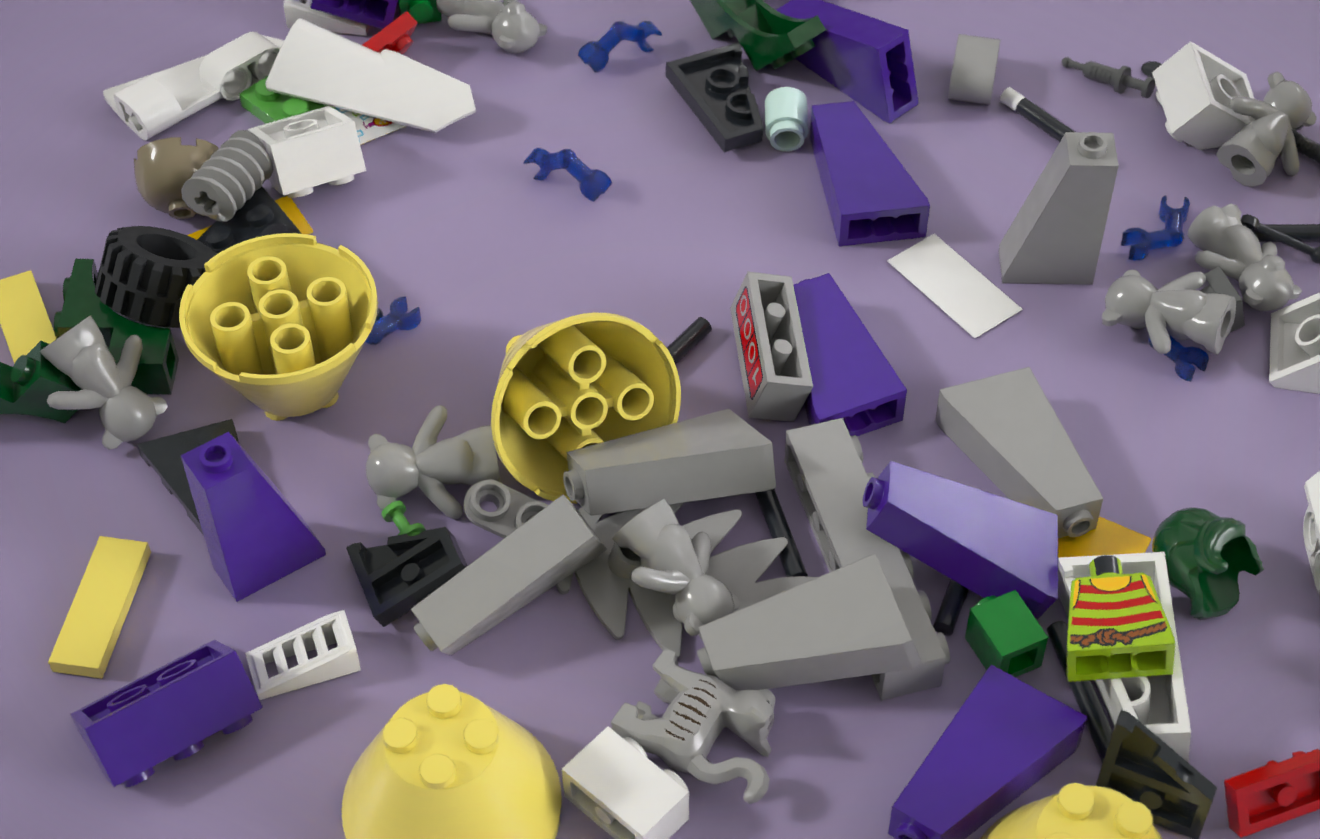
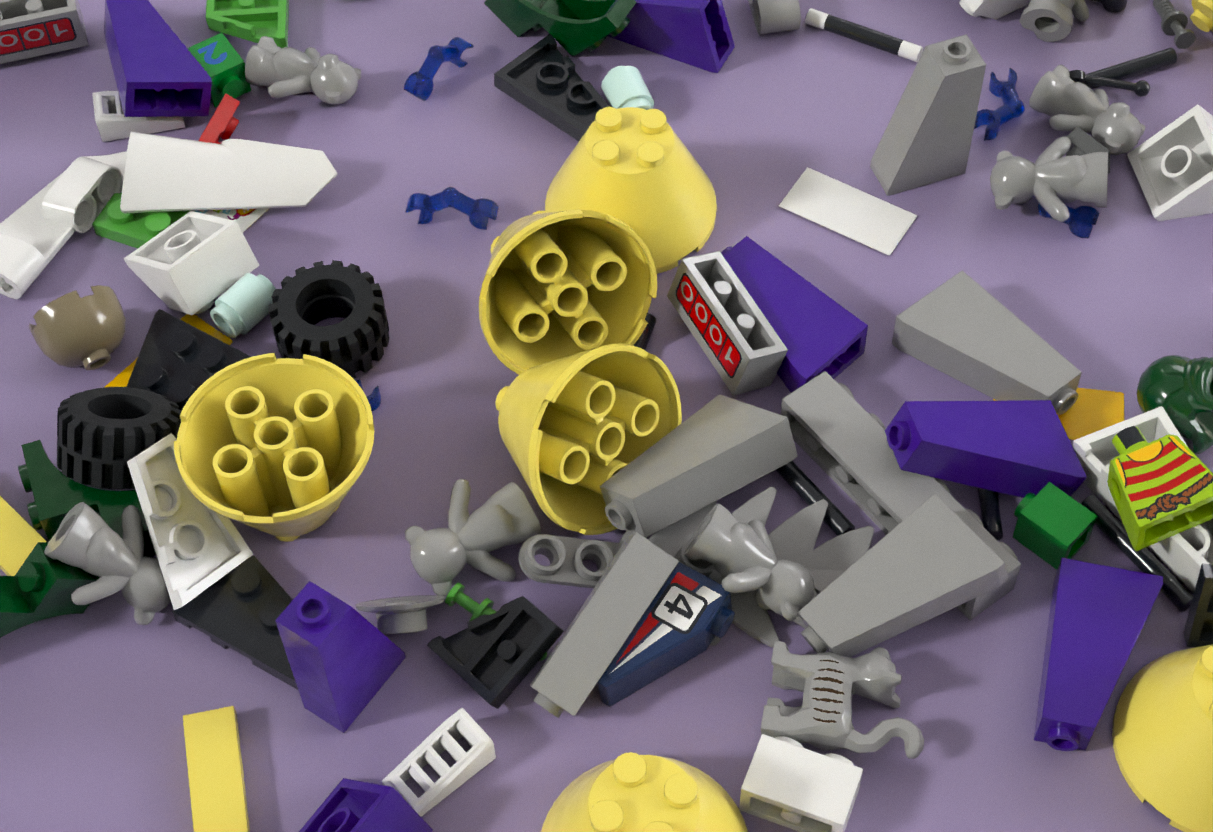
camera: 20 degrees left, 5 degrees up
(174, 385) = (188, 537): none -> white wing
(228, 177) = (137, 314): light grey piece -> none
(334, 511) = (401, 613): none -> light grey piece
(335, 200) = (243, 305): none -> light aqua brick
(403, 234) = (325, 294): none -> black tyre
(570, 610) = (670, 633): none -> dark blue slope
(623, 255) = (564, 287): none -> light yellow cone
(741, 205) = (642, 175): none -> light yellow cone
(863, 180) = (726, 135): dark purple slope -> none

